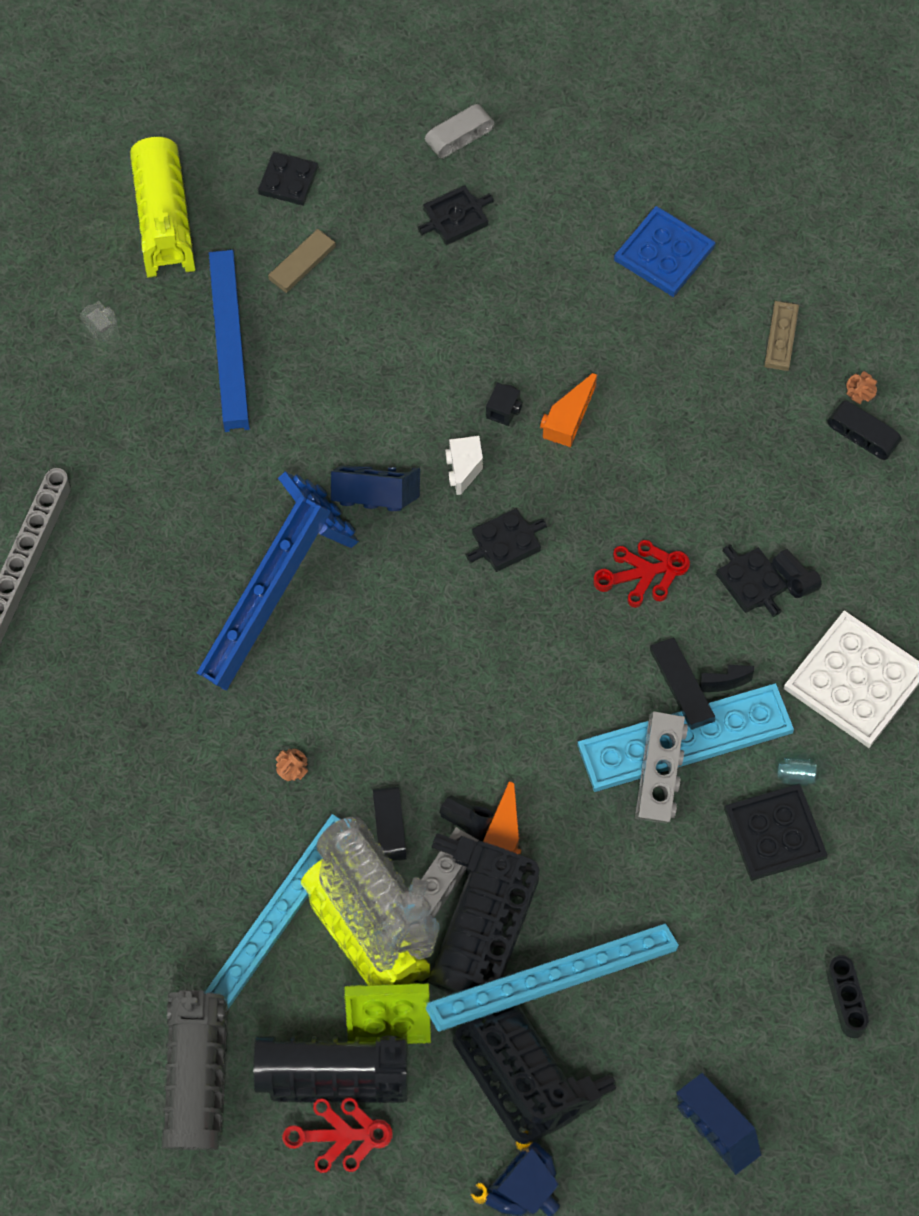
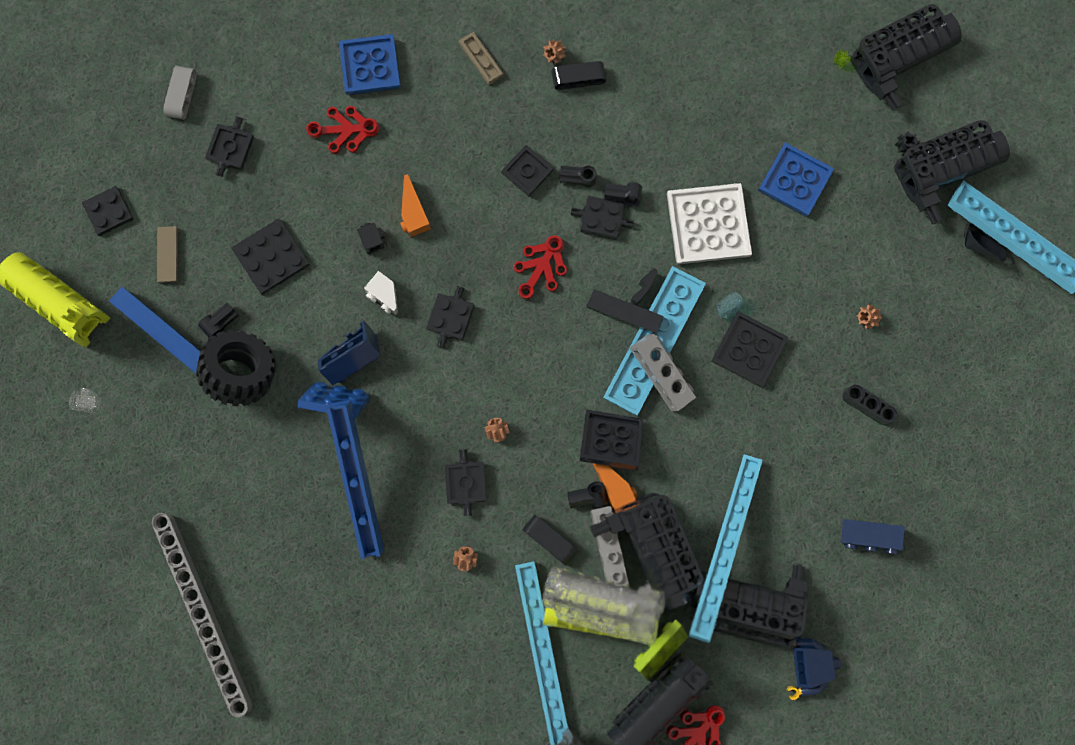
camera: 50 degrees left, 15 degrees up
(276, 386) = (241, 348): none -> black tyre
(280, 355) = (218, 321): none -> black piece
(363, 699) = (465, 482): none -> black plate
(393, 341) = (270, 256): none -> black plate
(443, 677) = (497, 429): none -> nougat gear
(544, 784) = (611, 440): none -> black plate
(580, 290) = (346, 129): none -> red plant
(720, 473) = (527, 170): none -> black plate
(766, 518) = (575, 175): none -> black piece

